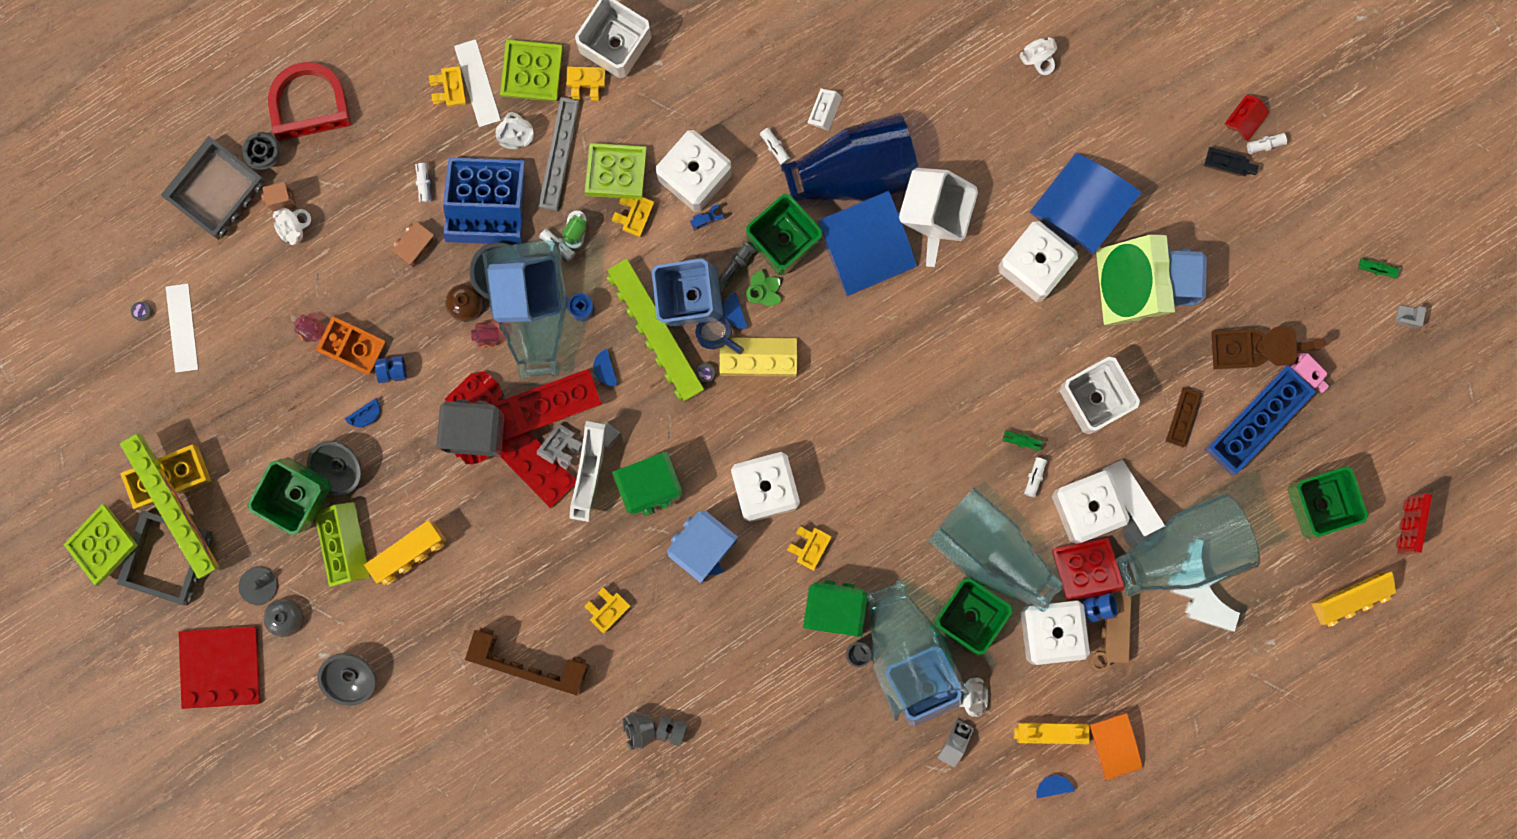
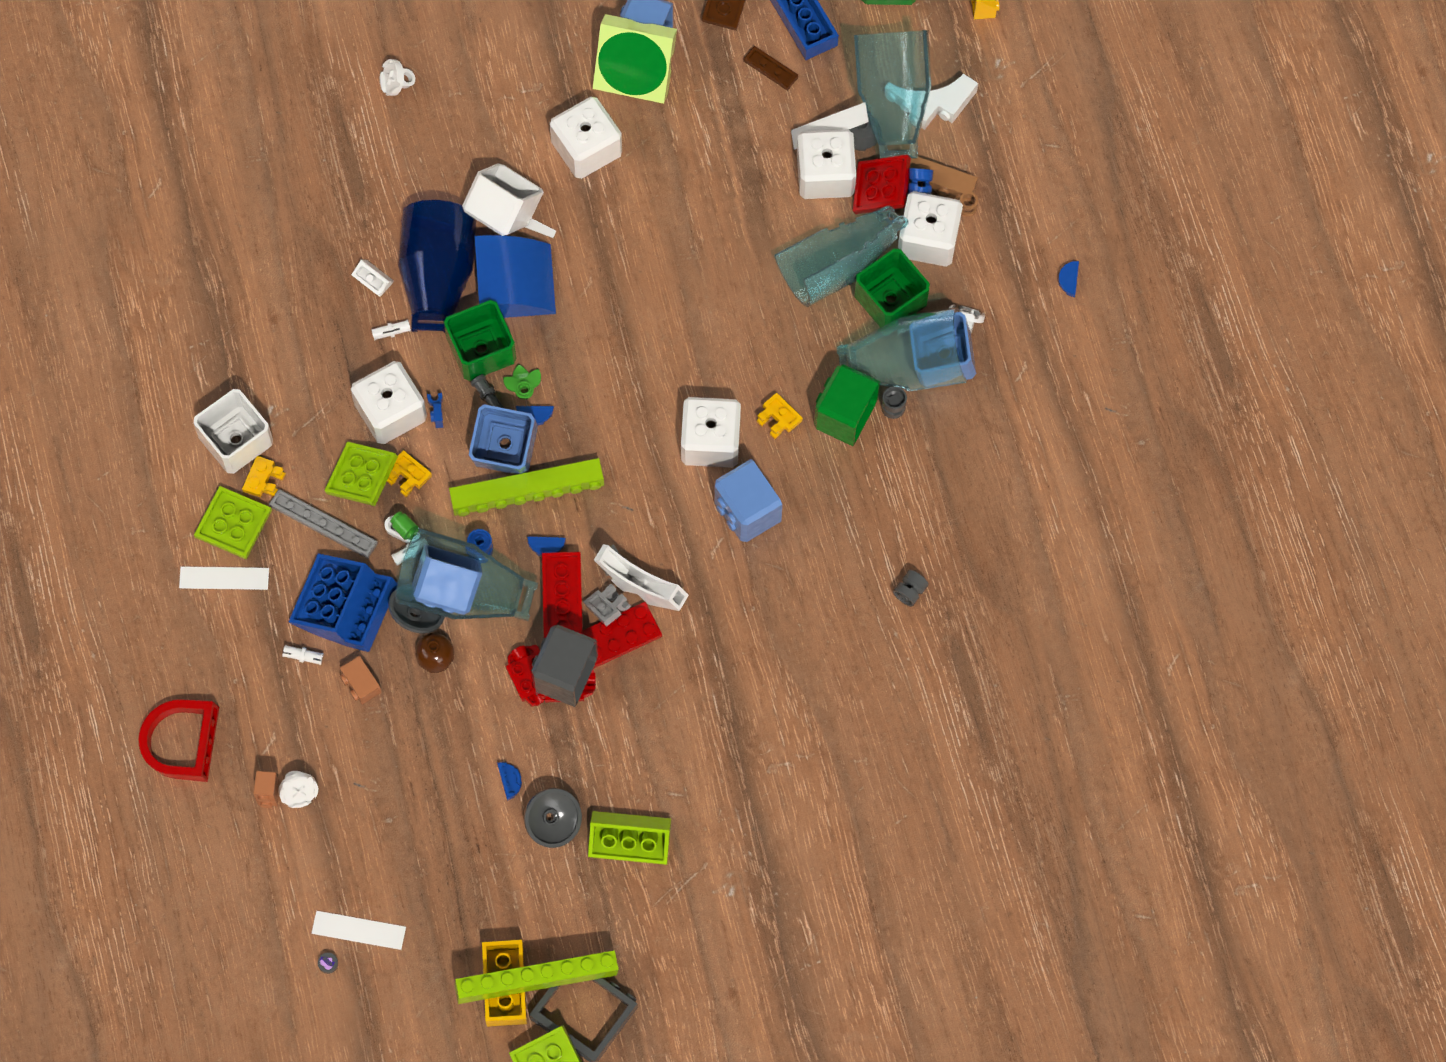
camera: 75 degrees left, 15 degrees down
(213, 188) = (232, 853): clear piece -> none
(219, 667) = (710, 993): red plate -> none
(257, 586) = (642, 933): dark grey shield -> none
(261, 150) = (213, 792): dark grey cone -> none
(274, 497) = (569, 844): green plate -> none
(283, 618) = (682, 916): dark grey cylinder -> none
(308, 328) = (405, 805): clear pink head -> none
(346, 687) = (773, 868): dark grey dish -> none
(350, 345) = (436, 771): orange slope -> none
(390, 369) = (475, 738): blue wheel -> none
(406, 552) = (659, 774): yellow brick -> none
(453, 87) = (219, 598): yellow plate -> none
(481, 651) = (833, 661): reddish brown plate -> none
(485, 334) = (473, 641): clear pink head -> none
(514, 132) = (287, 552): white tile -> none
(609, 613) = (780, 611): yellow plate -> none
(639, 730) = (900, 615): dark grey cone -> none
(648, 485) = (674, 530): green plate -> none
(705, 373) = (582, 454): dark grey tile -> none
(716, 335) = (551, 433): dark blue piece -> none
(760, 357) = (585, 405): light yellow slope -> none
(955, 743) = (1003, 346): light grey slope -> none
(1022, 440) = (744, 205): green pin -> none
(1035, 477) = (772, 198): white pin -> none
(1052, 733) = (1020, 262): yellow brick -> none
(1085, 203) = (546, 81): blue slope -> none
(1115, 392) = (727, 110): white plate -> none
(1115, 746) = (1048, 214): orange slope -> none

